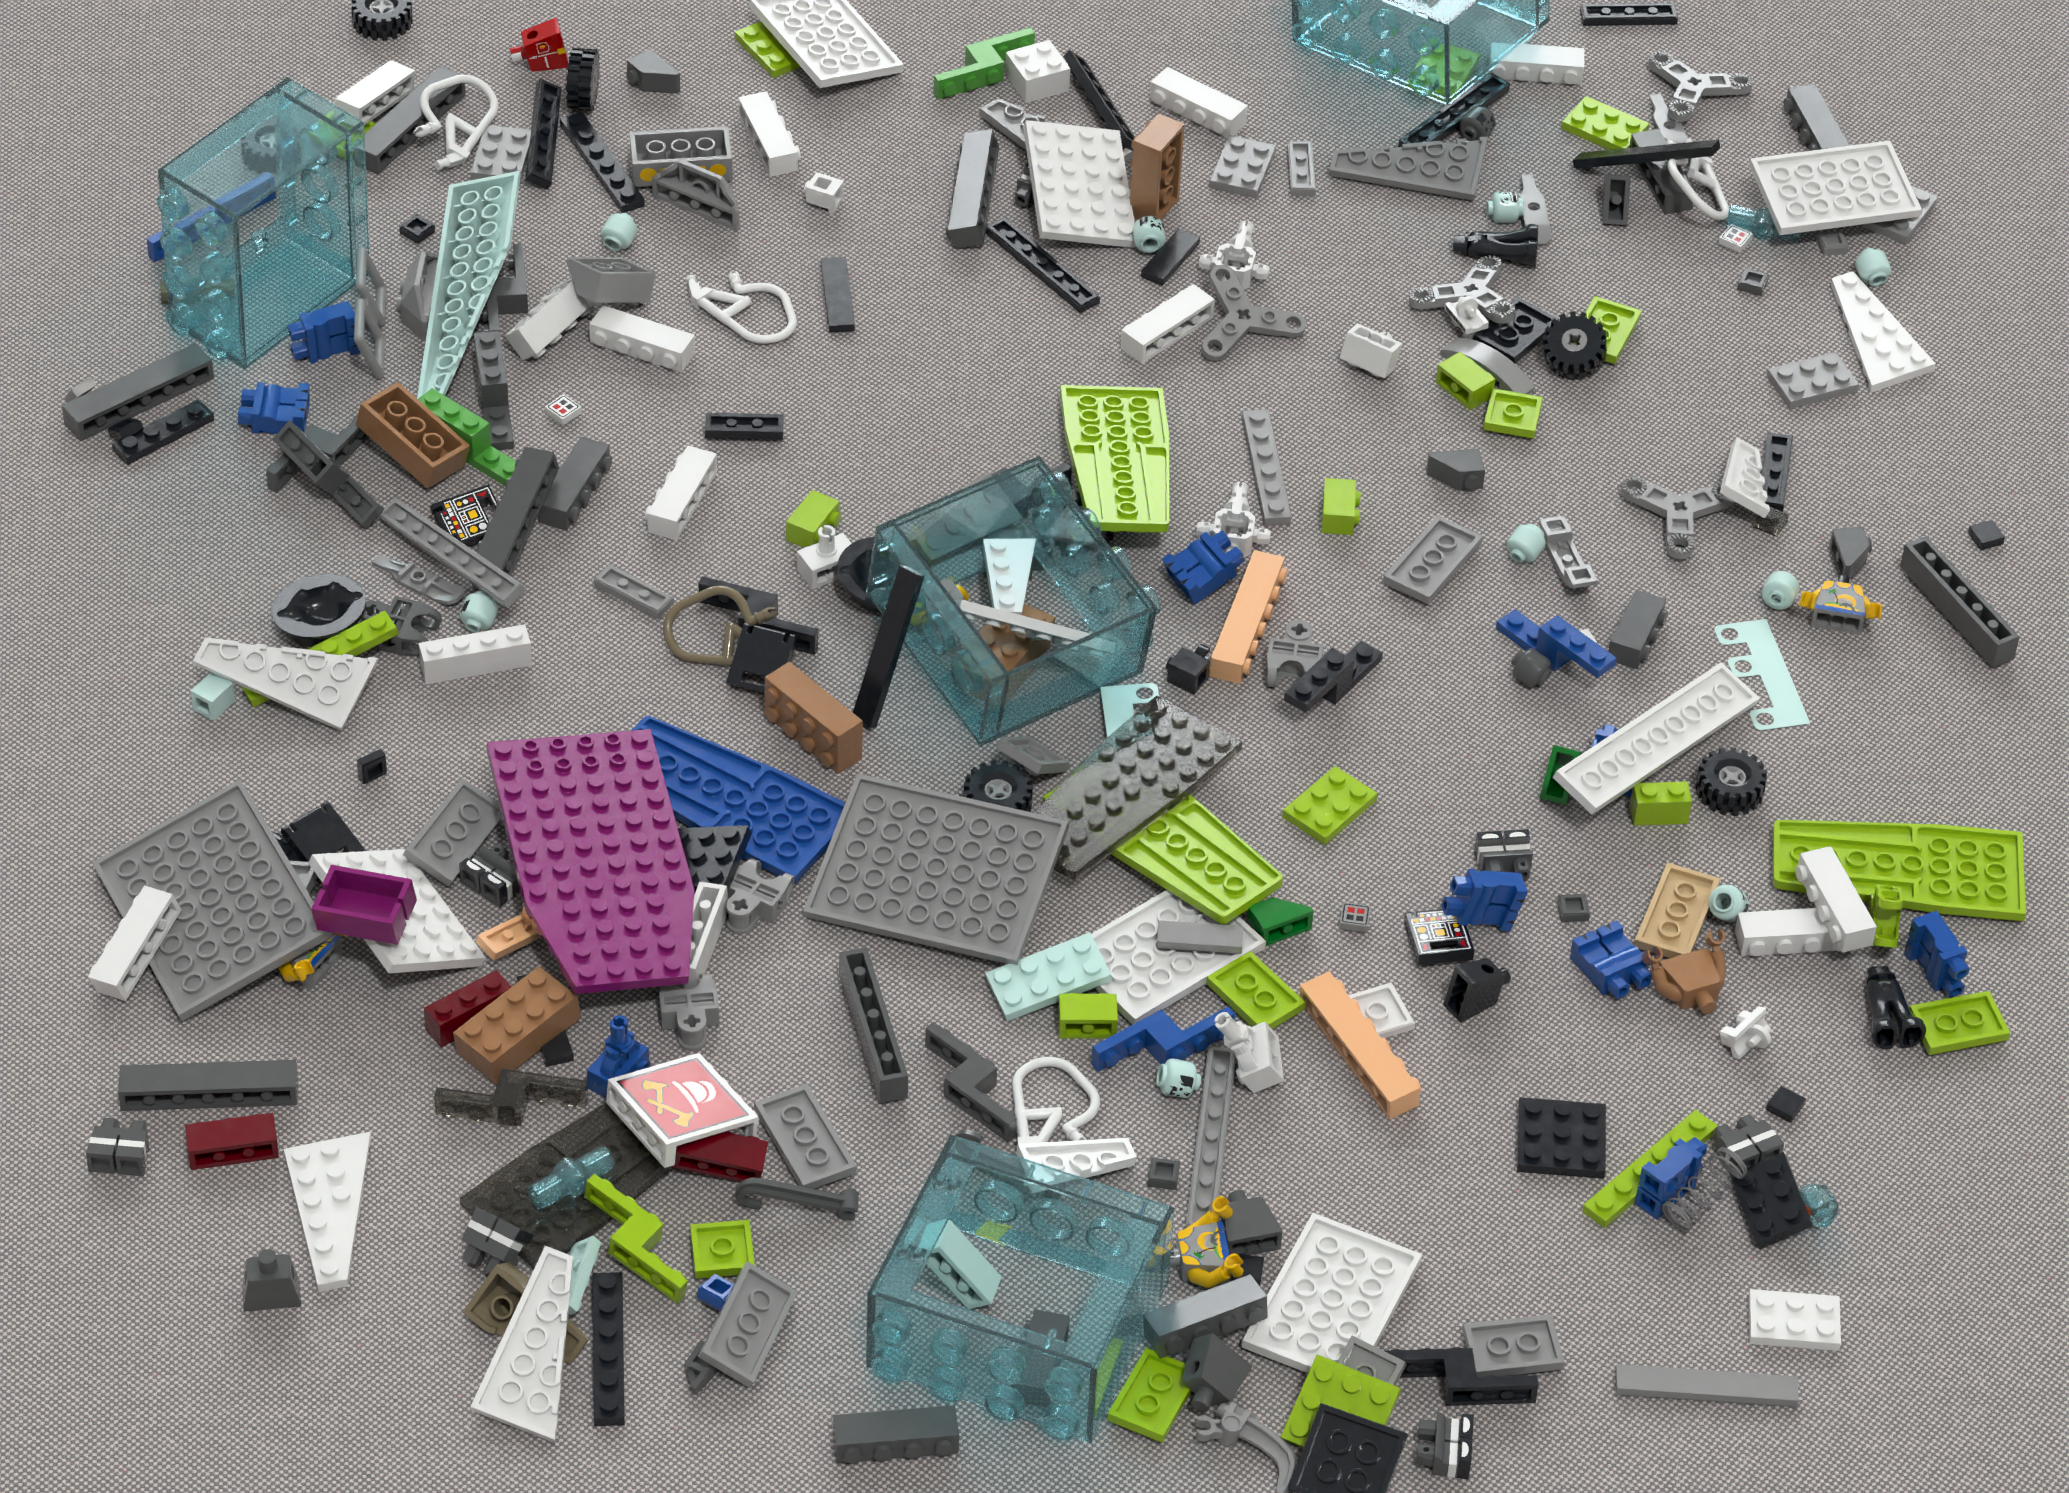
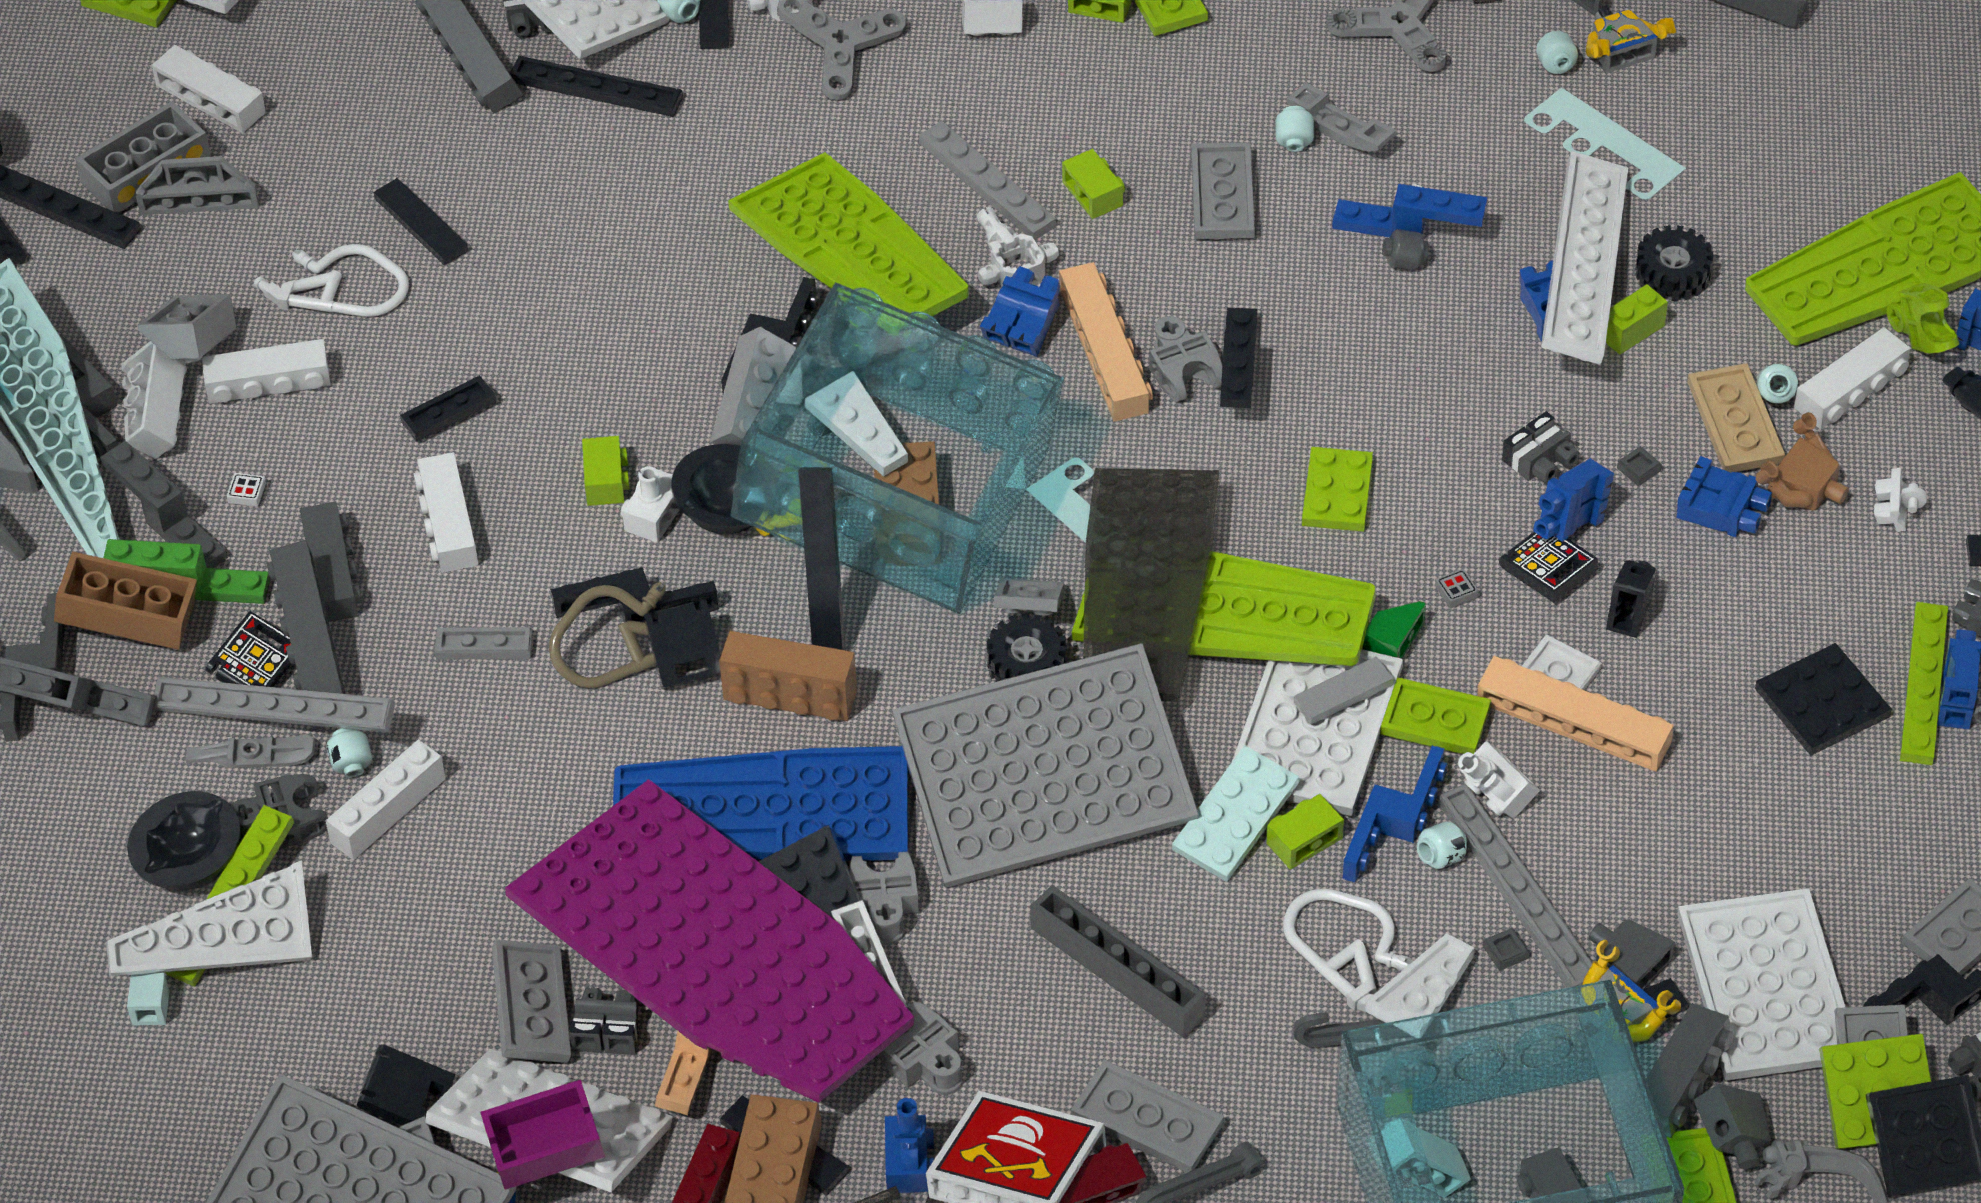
camera: 30 degrees left, 5 degrees up
(371, 766) = (381, 980): black tile -> none
(619, 231) = (145, 270): light aqua head -> none
(652, 73) = (35, 84): dark grey slope -> none
(824, 192) = (318, 120): white brick -> none
(970, 1081) = (1254, 964): dark grey bracket -> none
(1021, 624) = (952, 462): white wing -> none
(1167, 323) = (772, 83): white brick -> none
(1189, 669) = (1094, 424): black brick -> none
(1457, 468) = (1169, 87): dark grey slope -> none
(1551, 788) = (1521, 339): green slope -> none
(1638, 629) = (1465, 157): brick -> none
(1836, 899) = (1876, 326): white brick -> none

